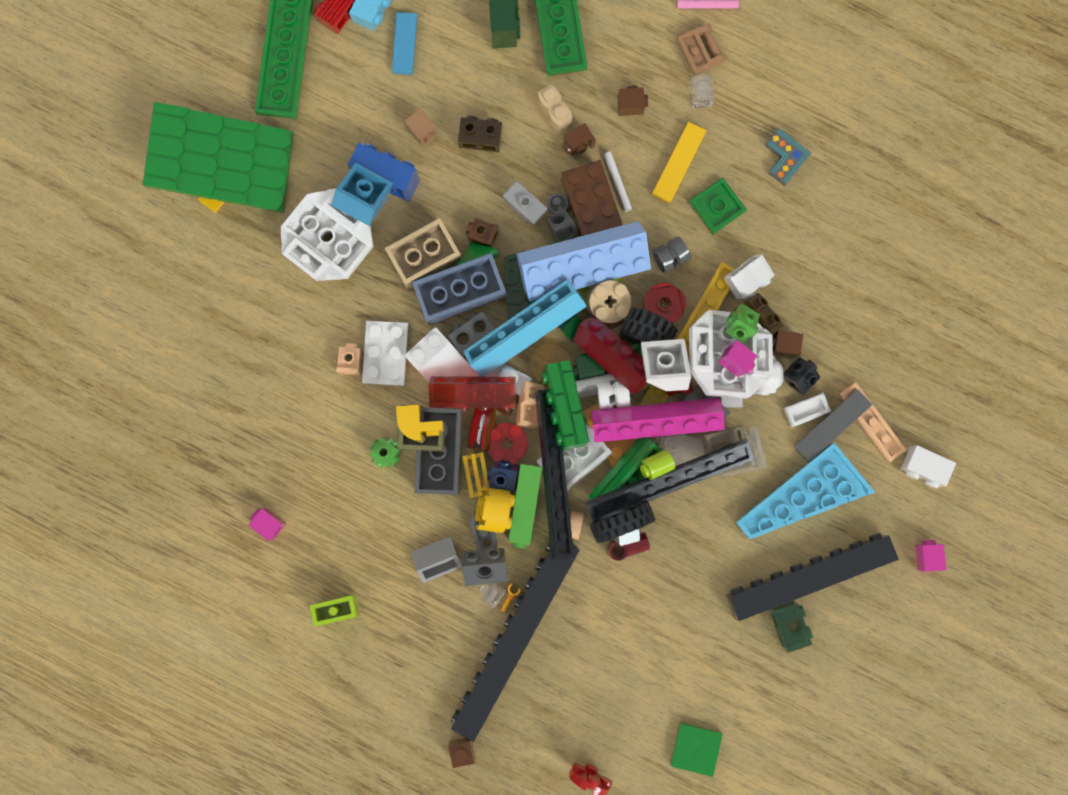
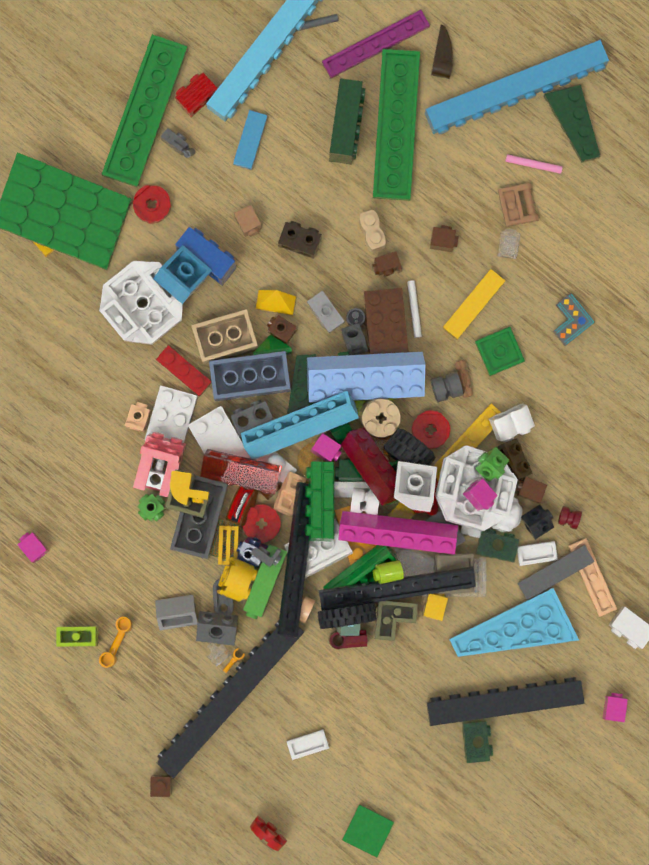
camera: 10 degrees right, 0 degrees up
(314, 121) = (151, 193): none -> red plate
(328, 62) = (178, 143): none -> dark grey piece
(375, 626) = (109, 658): none -> light orange bar
(384, 387) = (164, 449): none -> coral brick
(388, 300) = (183, 370): none -> red plate
(469, 205) = (275, 301): none -> yellow slope
(516, 477) = (263, 555): none -> dark grey bracket
(559, 348) = (326, 448): none -> dark pink brick
(610, 670) = (307, 744): none -> white tile
(666, 511) = (391, 612): none -> olive brick
(680, 230) = (464, 378): none -> medium nougat axle
(713, 490) = (435, 606): none -> yellow brick
(776, 416) = (486, 549): none -> clear green brick
(834, 364) = (572, 518): none -> dark red wheel

